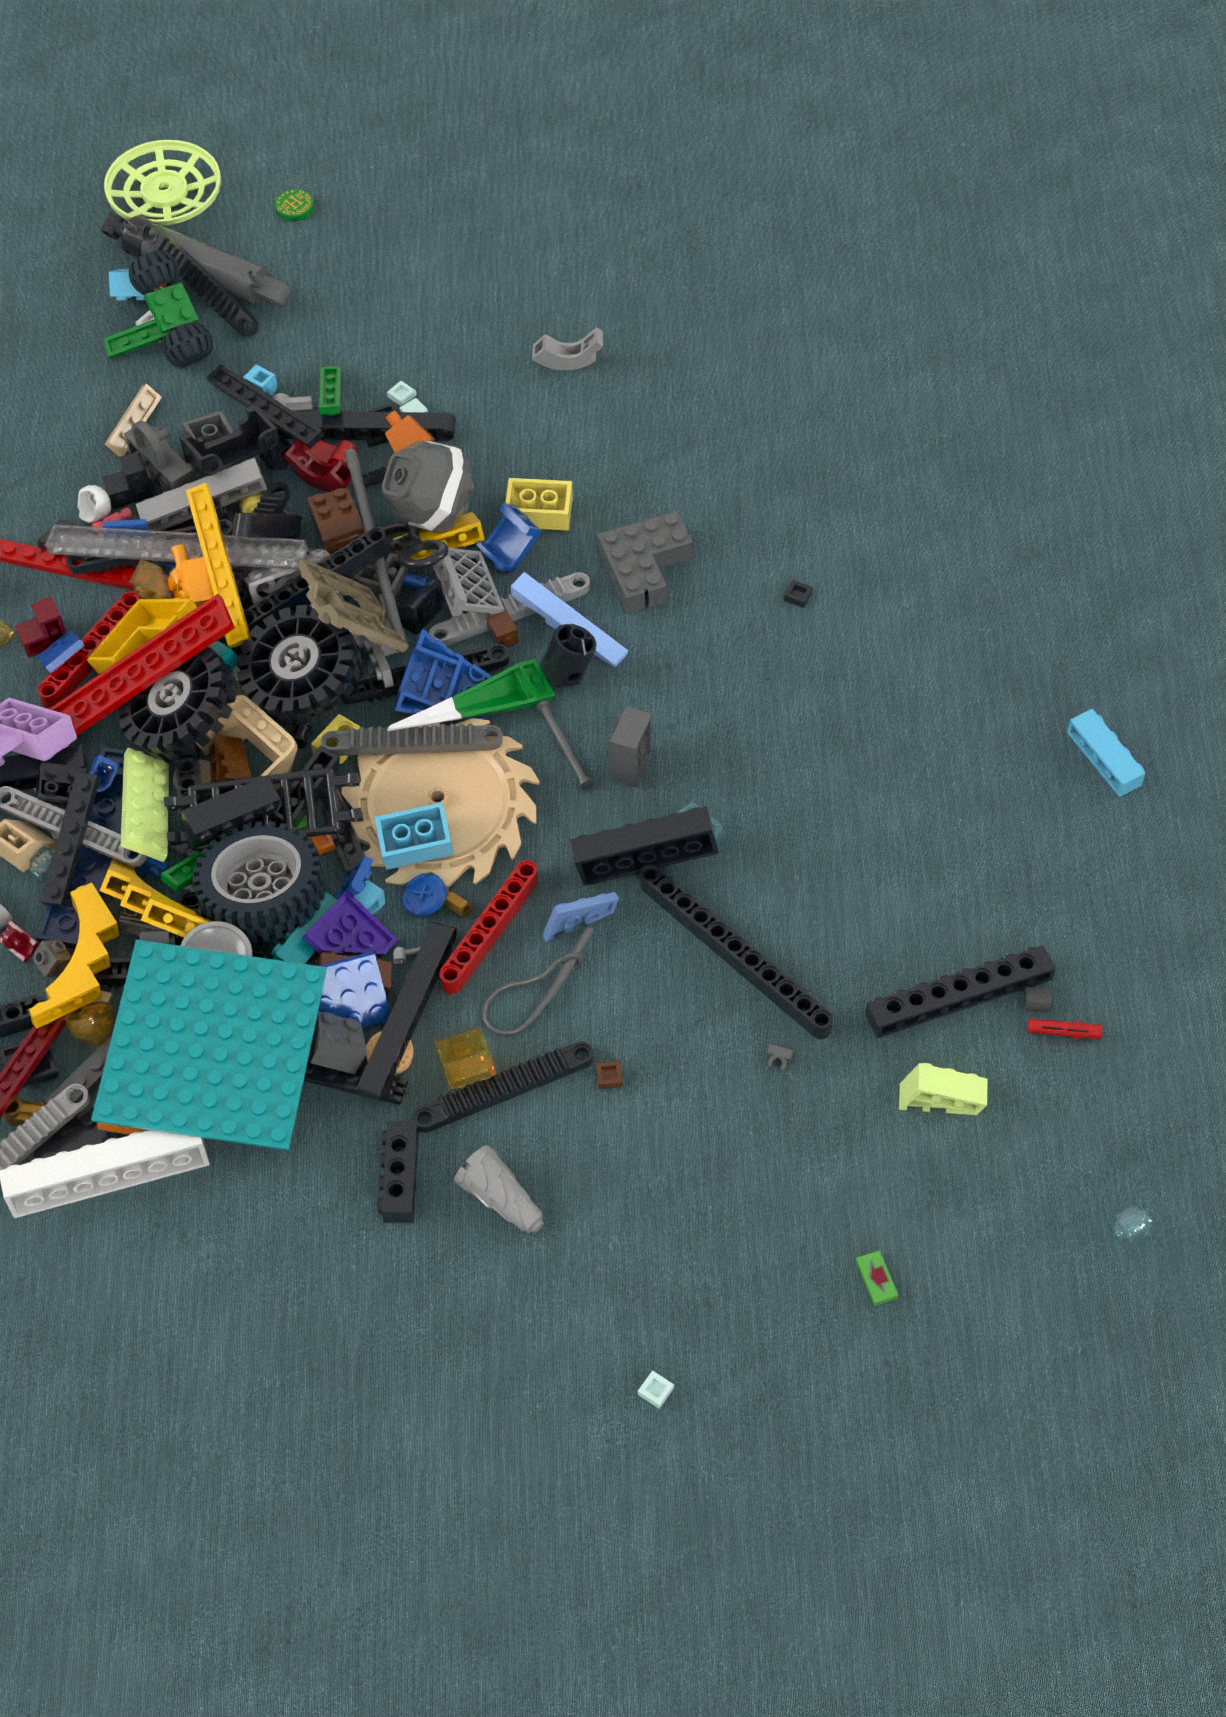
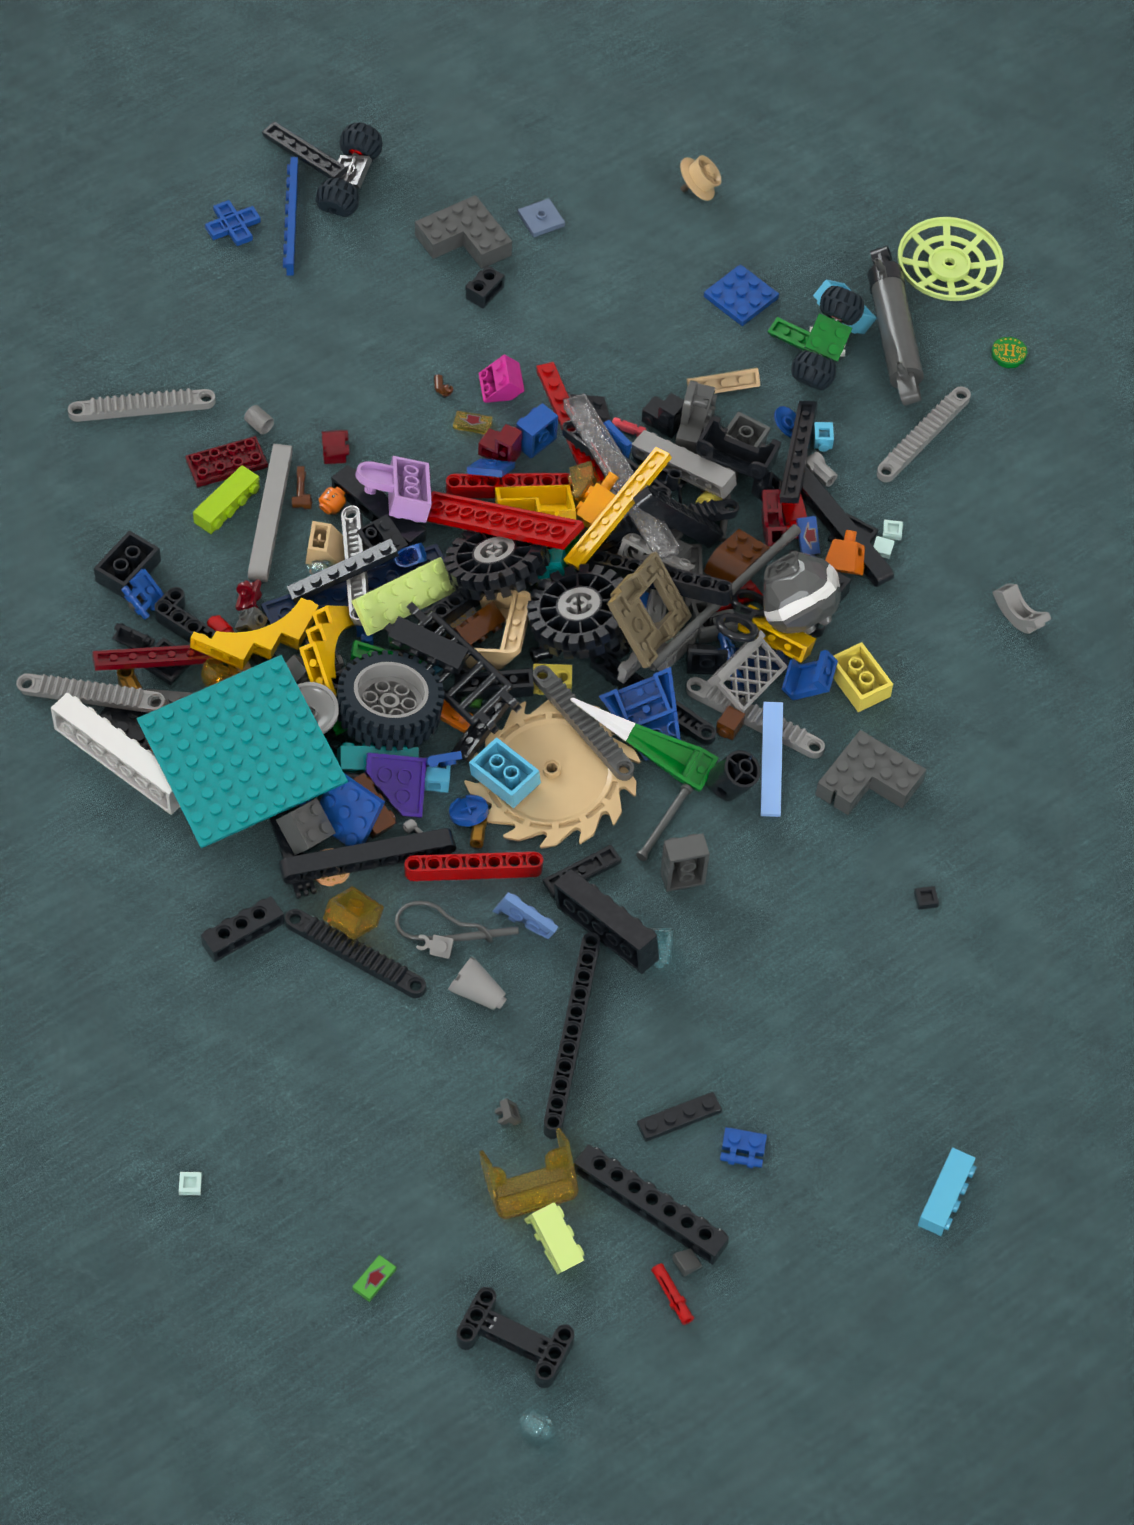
camera: 50 degrees right, 0 degrees up
(31, 988) = (219, 624): none -> red brick
(49, 353) = (741, 295): none -> blue plate
(53, 583) = (538, 430): none -> blue brick
(93, 504) = (630, 406): white hair -> none
(202, 281) = (875, 338): black gear -> none
(220, 399) = (785, 420): none -> blue dish
(322, 311) = (923, 434): none -> light grey gear
(330, 390) = (849, 482): green plate -> none
(366, 457) = (809, 535): none -> blue tile
(497, 1188) = (270, 990): light grey cone -> none
(553, 1007) = (439, 946): none -> light grey plate
(564, 829) = (588, 867): none -> black plate
(609, 1074) = (411, 1012): reddish brown plate -> none
(624, 998) = (478, 986): none -> light grey cone
(877, 1073) = (533, 1189): none -> clear yellow windscreen
(882, 916) = (679, 1116): none -> black plate
(946, 878) = (743, 1142): none -> blue plate
(1025, 1188) = (515, 1337): none -> black beam

